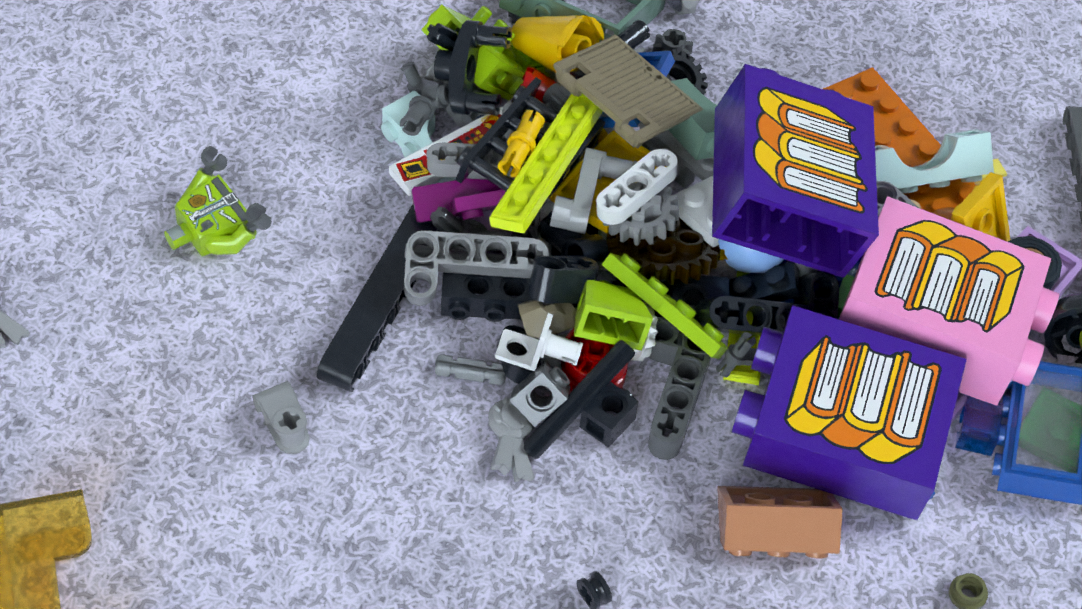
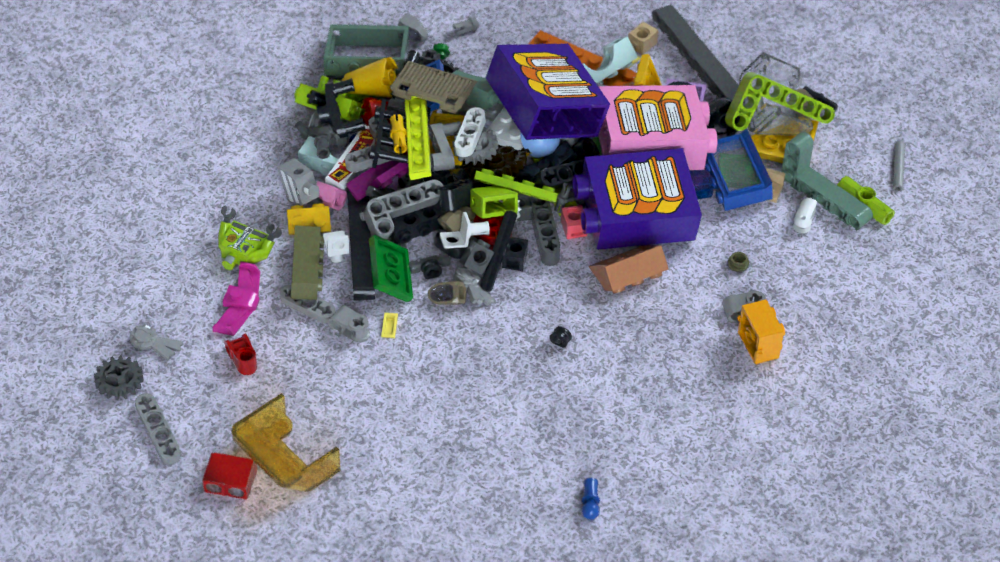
camera: 25 degrees left, 5 degrees down
(95, 393) = (242, 354): none -> red piece
(154, 303) = (240, 300): none -> dark pink plate
(245, 340) = (313, 311): none -> light grey beam
(280, 288) = (306, 263): none -> olive brick
(335, 221) = (315, 216): none -> yellow bracket
(338, 278) = (336, 245): none -> white bracket
(345, 445) = (389, 325): none -> light yellow piece
(348, 161) = (298, 182): none -> light grey torso
(388, 197) = (331, 196): none -> bright pink rock
(398, 353) = (390, 268): none -> green plate
(463, 434) = (448, 293): none -> rock
(464, 381) = (431, 269): none -> black bush
(701, 39) = (443, 49): none -> green plate
(731, 388) = (572, 222): none -> coral brick
(764, 16) = (466, 26): none -> light grey pin
(1025, 144) = (643, 37): none -> tan brick

